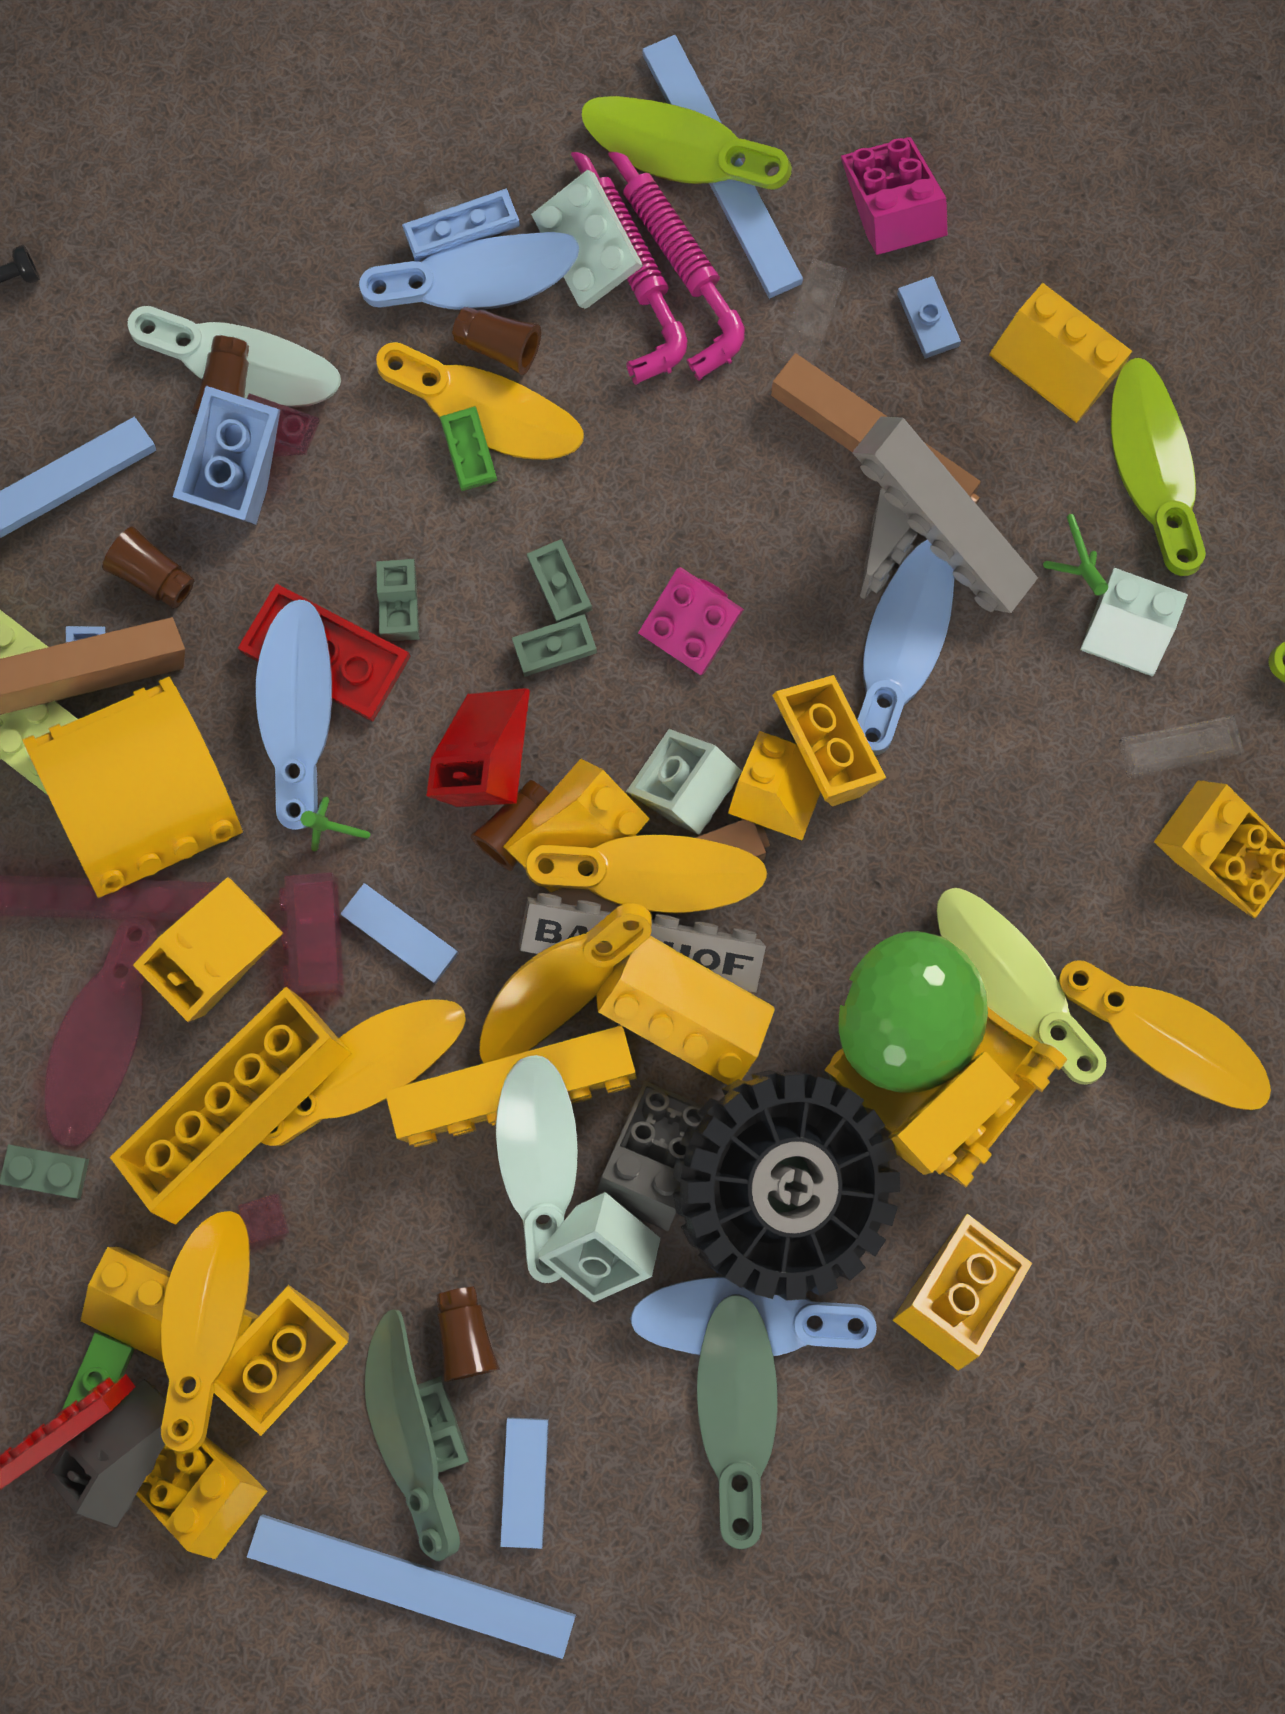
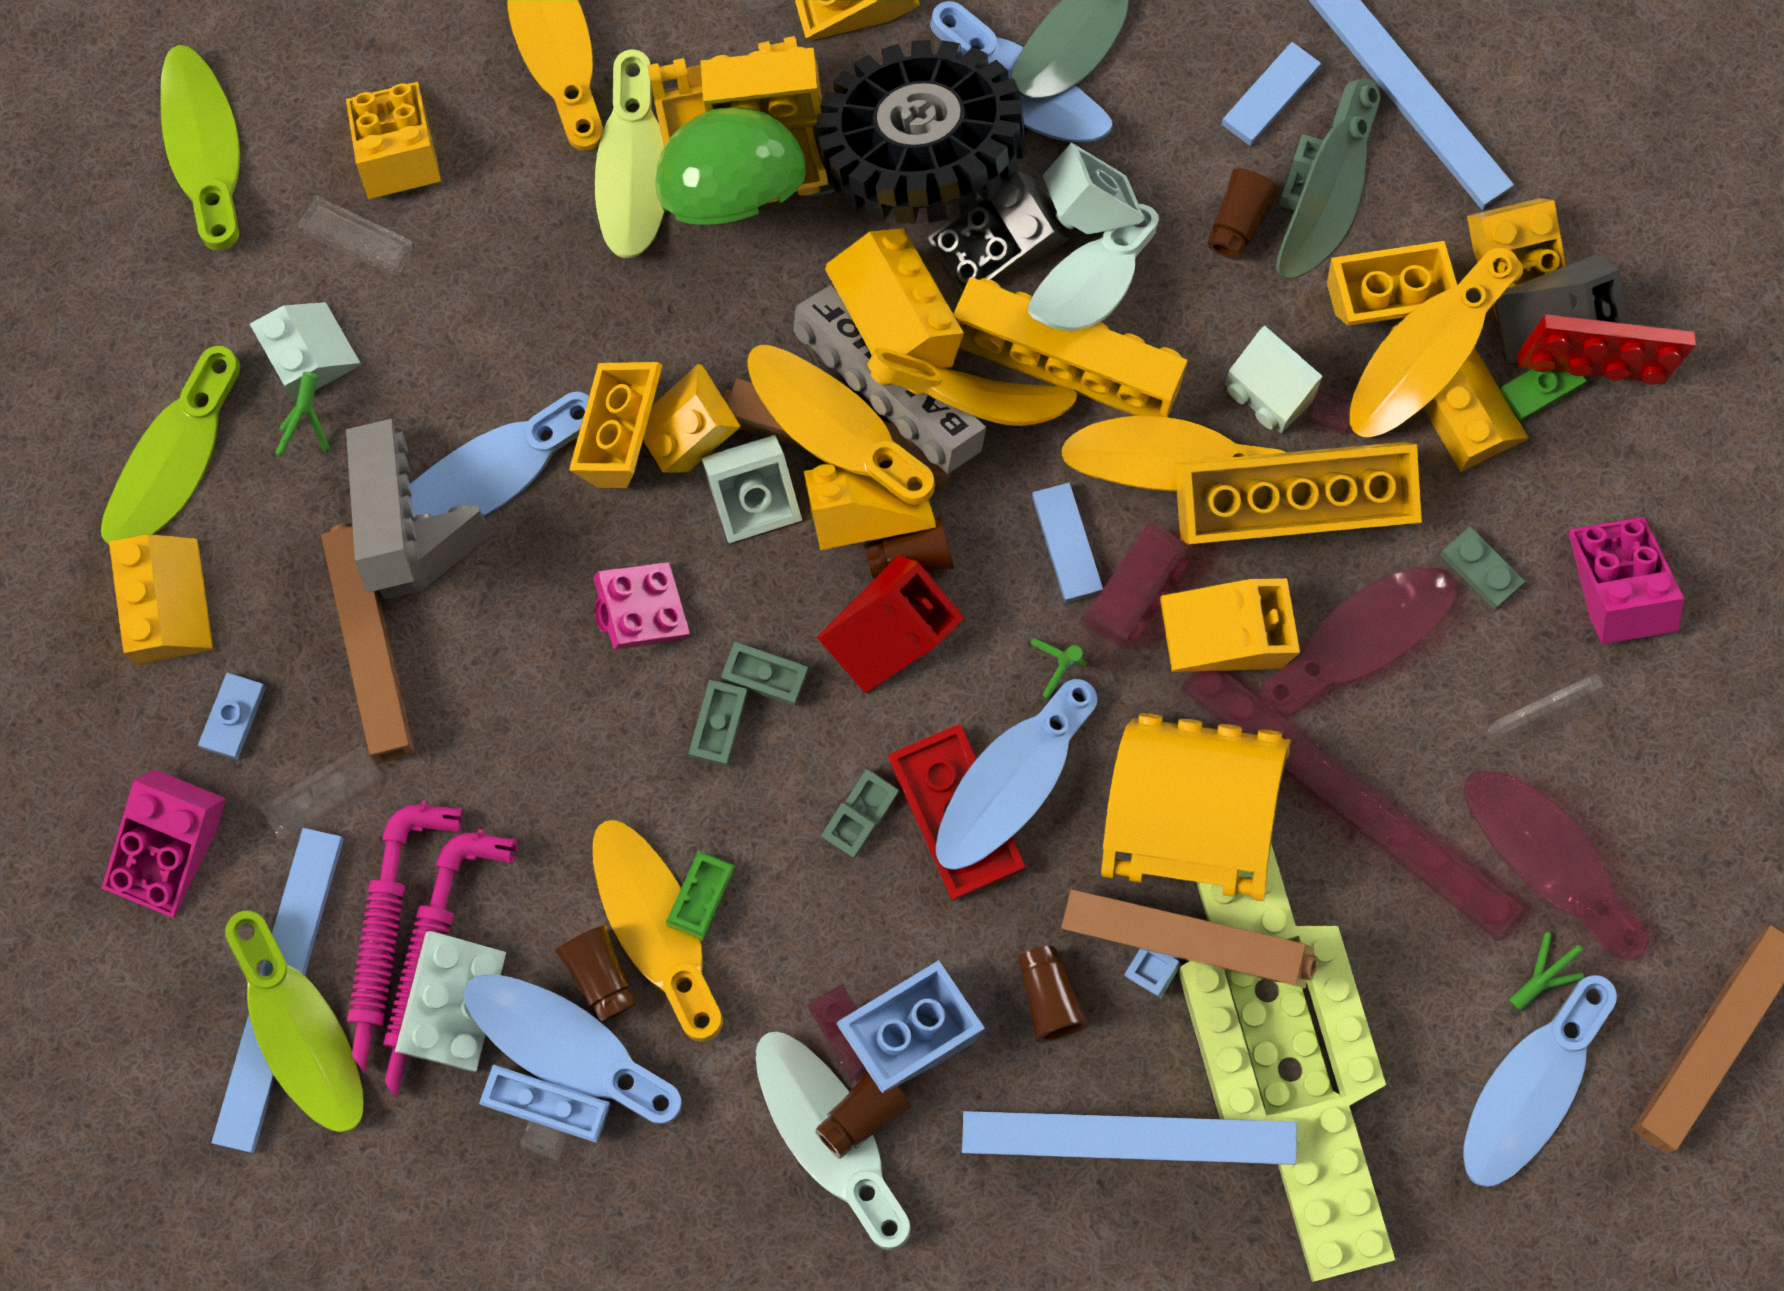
camera: 145 degrees left, 5 degrees down
(324, 1192) = (1273, 381): none -> light aqua slope

